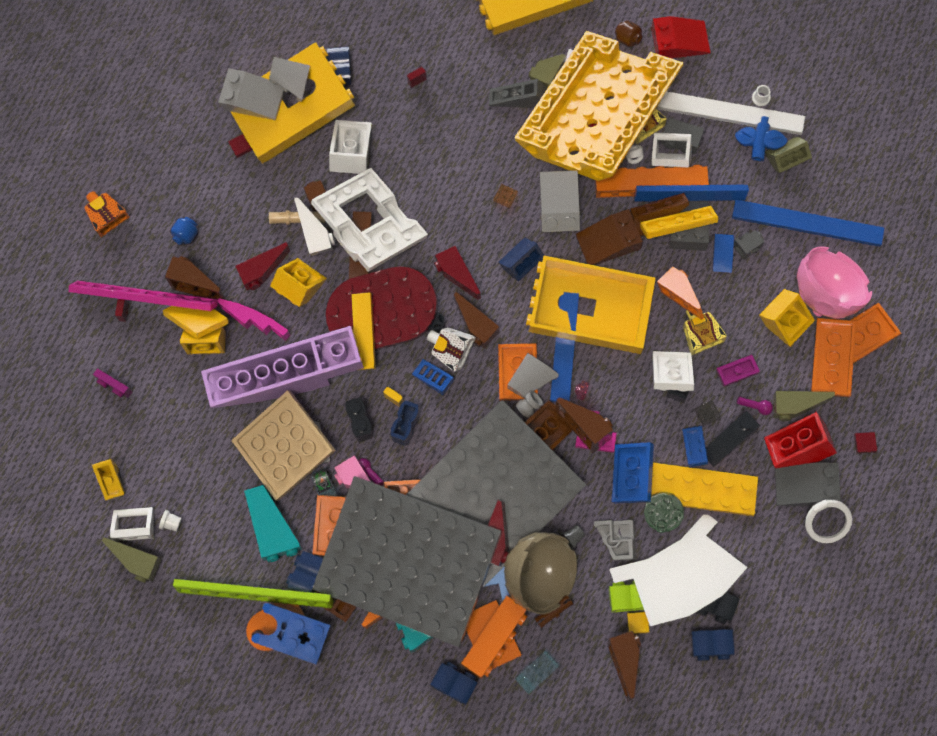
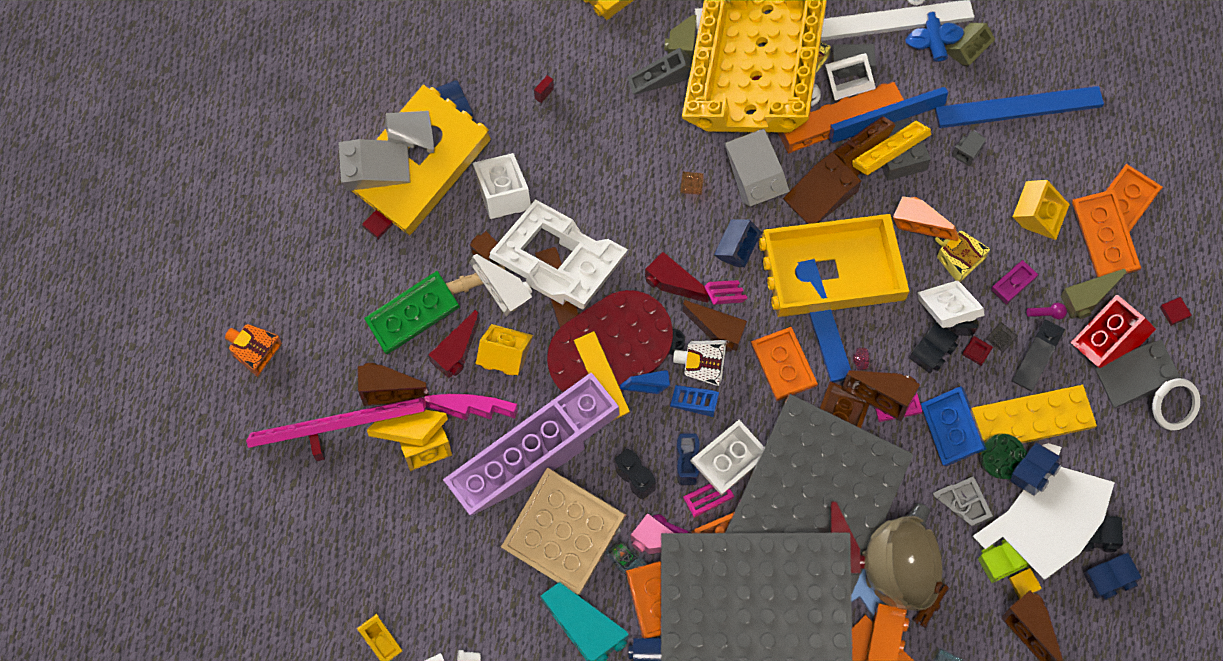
camera: 25 degrees left, 5 degrees down
(105, 380) = (348, 534): magenta plate -> none
(184, 231) = (353, 336): blue head -> none
(237, 227) = (412, 312): none -> green tile
(393, 396) = (661, 436): yellow tile -> none
(399, 349) = (647, 383): none -> blue slope
(413, 466) = (691, 506): none -> dark pink tile
(435, 433) = (729, 457): none -> white slope
(502, 295) = (723, 288): none -> dark pink tile
(529, 404) = (813, 391): light grey wheel -> none
(531, 376) = (802, 362): light grey slope -> none
(645, 402) = (934, 347): none -> black brick
(682, 417) = (977, 350): none -> dark red tile
(685, 533) = (1036, 469): none -> dark blue brick
(695, 446) = (1005, 376): blue plate -> none
(723, 253) = (947, 166): blue slope -> none
(832, 284) = (1076, 159): bright pink rock -> none

